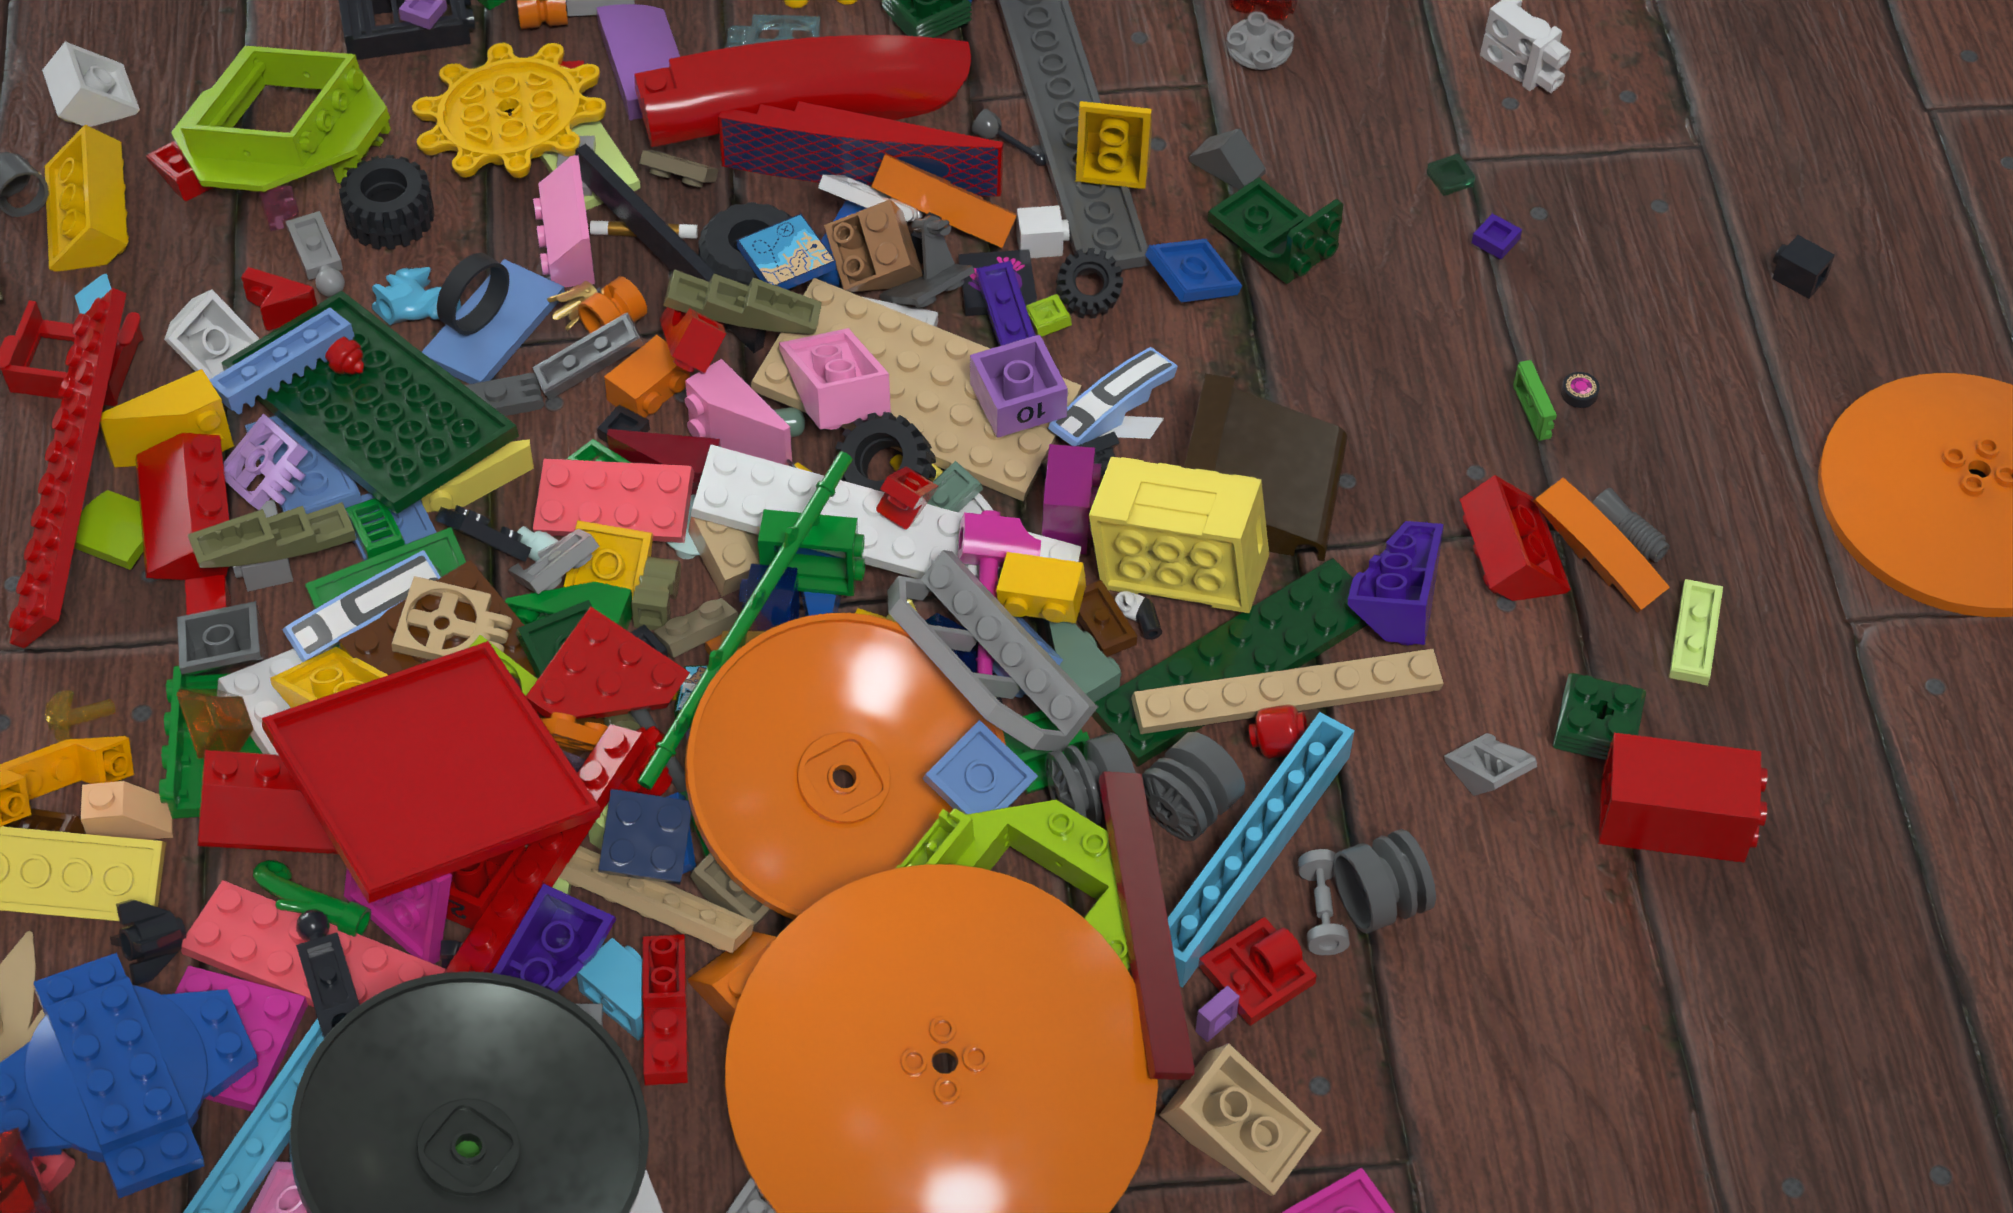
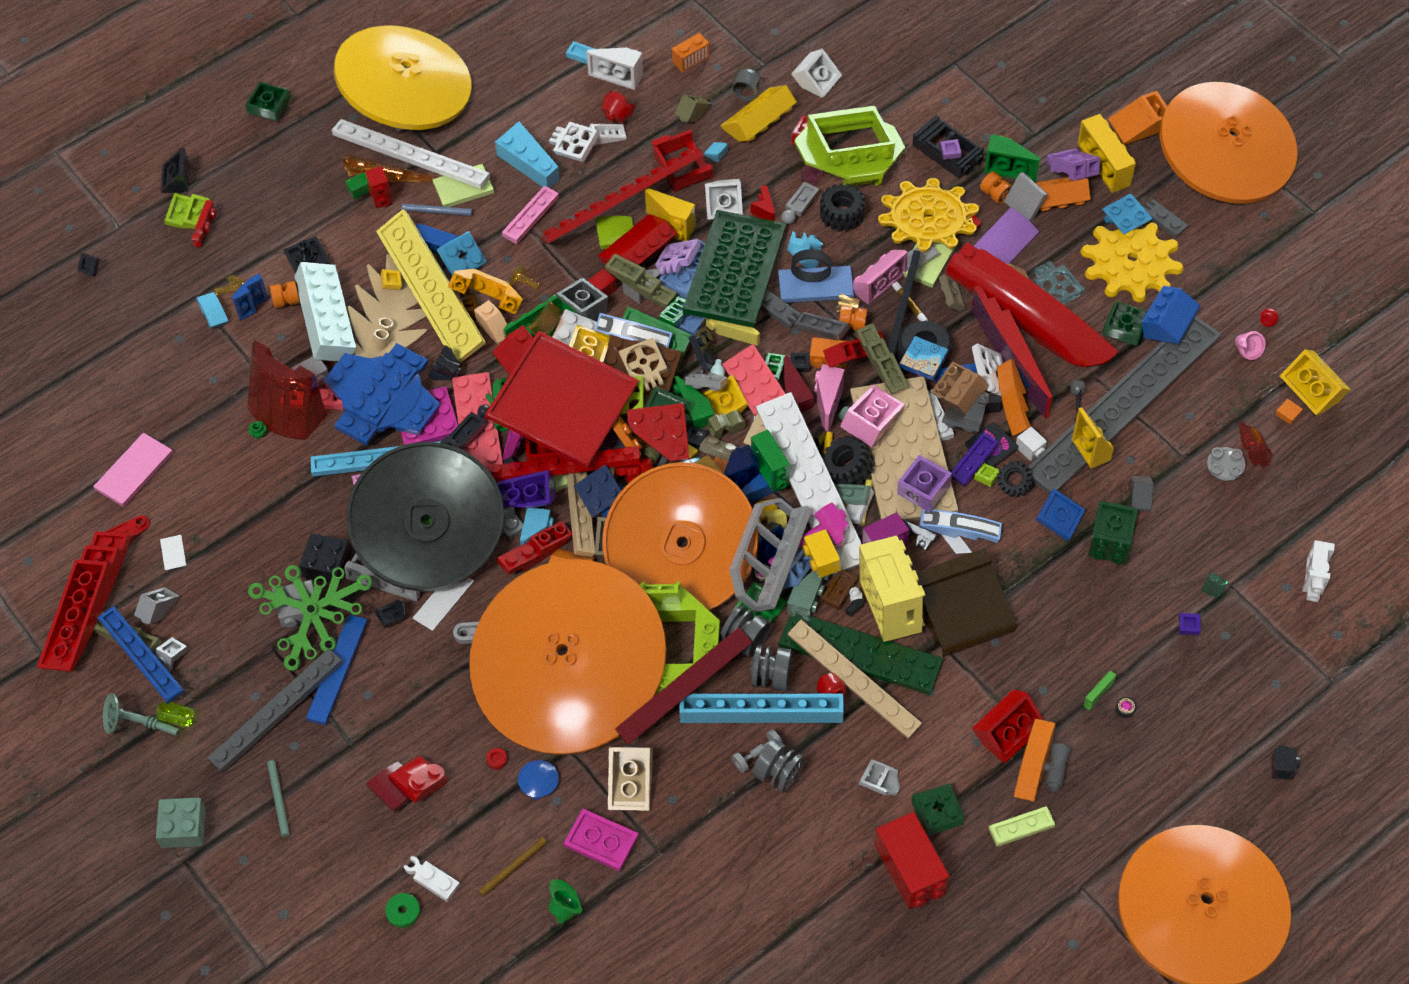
camera: 60 degrees right, 5 degrees up
(280, 360) = (727, 226): medium blue gear -> none
(345, 356) = (745, 245): red plate -> none
(738, 633) = (705, 458): green plant -> none
(905, 496) = (826, 475): red slope -> none
(980, 773) = (713, 587): medium blue plate -> none
(1217, 1013) = (673, 741): medium lavender tile -> none
(1261, 967) = (706, 745): red plate -> none
(1400, 584) = (942, 693): dark purple wedge -> none

